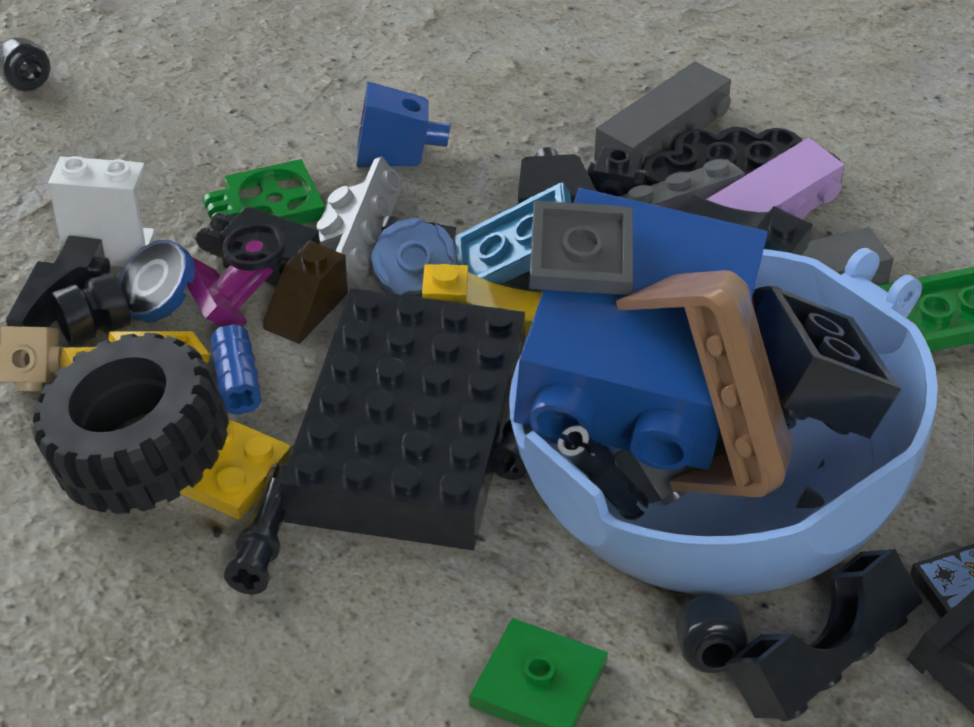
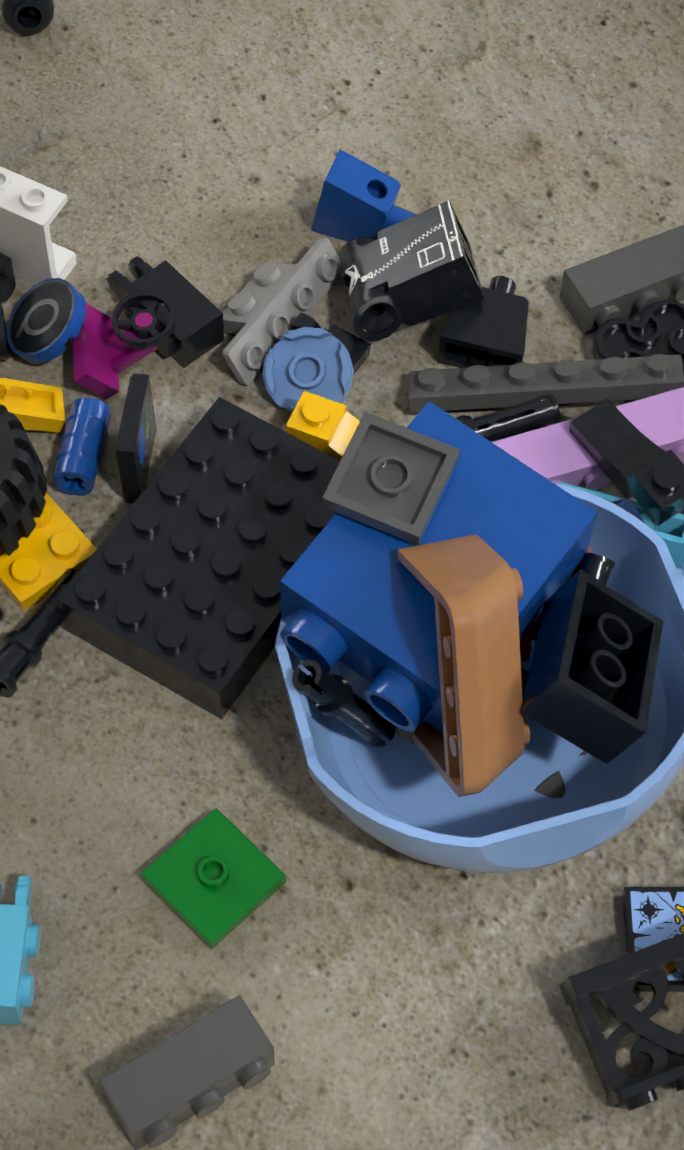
camera: 20 degrees right, 15 degrees up
(229, 200) = (160, 243): green piece -> none
(289, 342) = (136, 437): none -> black tile
(306, 292) = (190, 376): dark brown slope -> none
(469, 158) = (410, 273): none -> black piece
(502, 245) = (403, 381): dark azure tile -> none
(617, 171) = (559, 335): black brick -> none
(710, 633) = (388, 893): black head -> none
(867, 602) = (552, 915): black arch -> none

